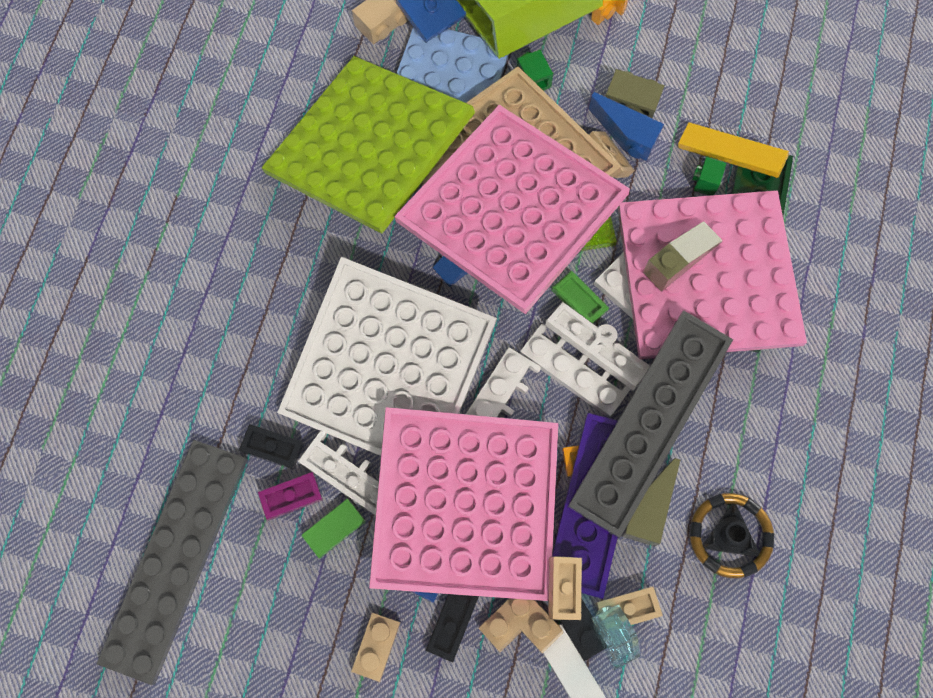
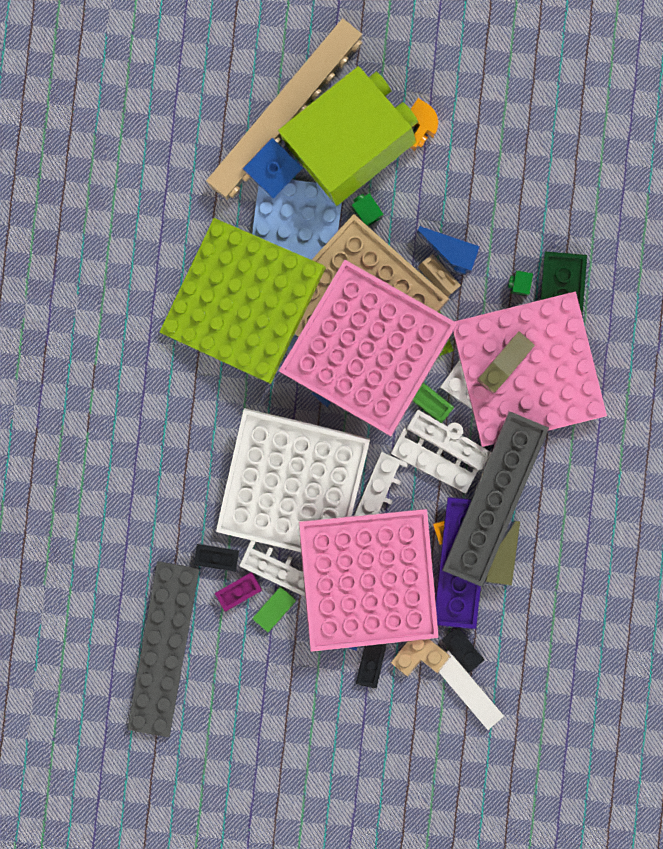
camera: 10 degrees left, 15 degrees up
(376, 647) = (320, 686): tan plate -> none
(565, 588) = (447, 627): tan plate -> none
(616, 636) = (487, 654): clear light blue arch -> none
(635, 92) = (452, 219): olive brick -> none
(637, 606) = (495, 632): tan plate -> none
(732, 535) = (564, 567): black piece -> none
(733, 149) = (537, 258): yellow tile -> none

